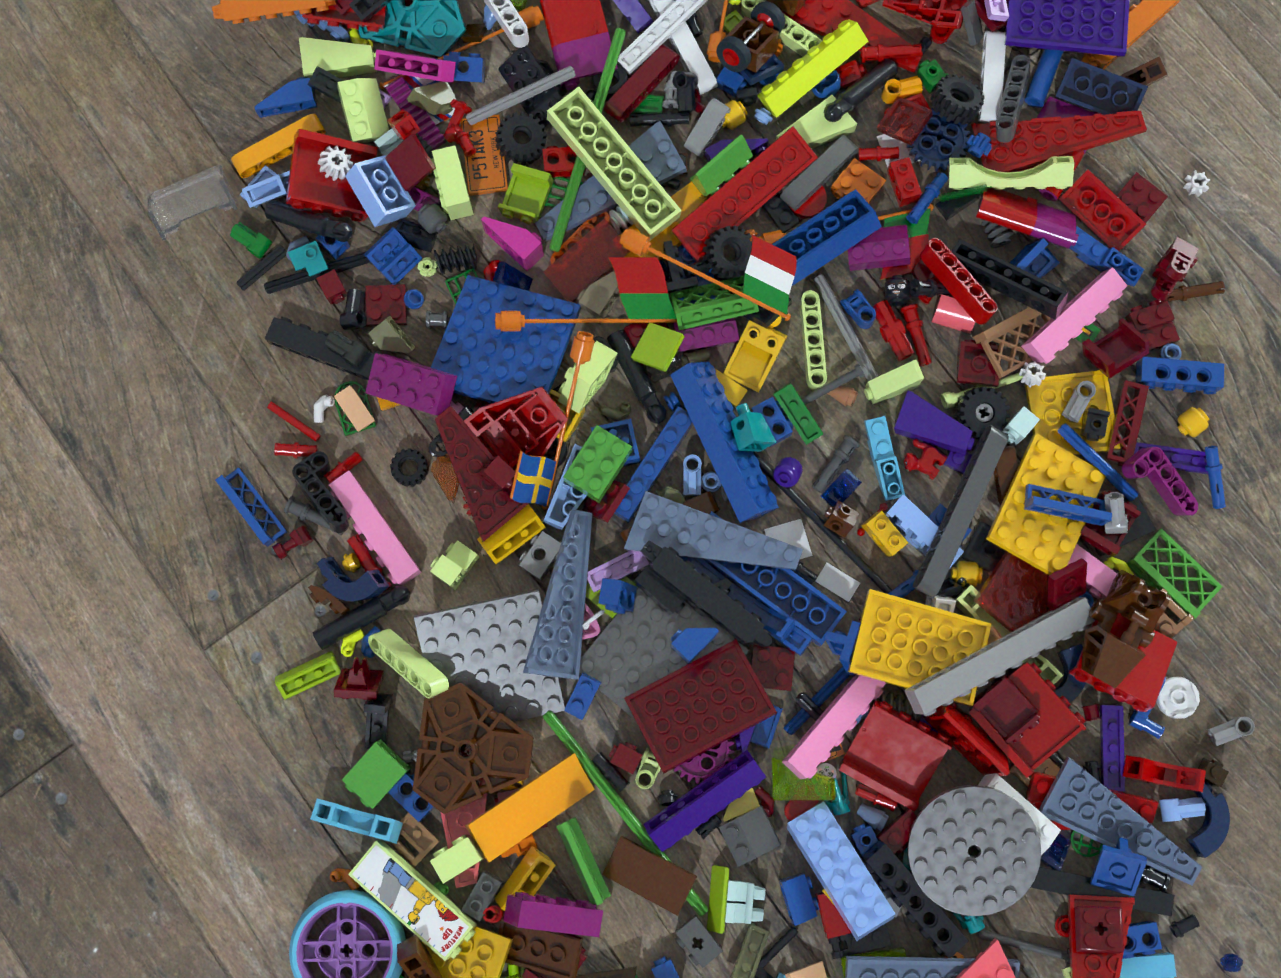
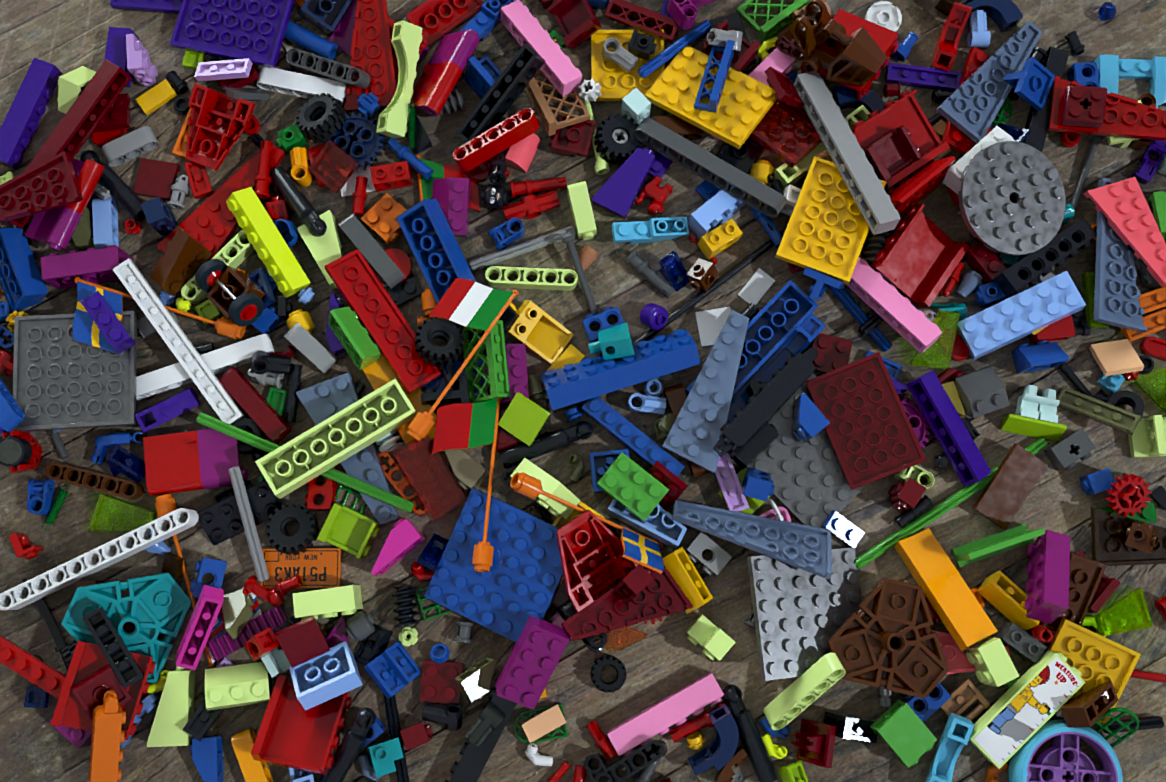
camera: 85 degrees left, 0 degrees up
(331, 169) = (284, 714): white gear -> none
(798, 413) = (600, 300): green plate -> none

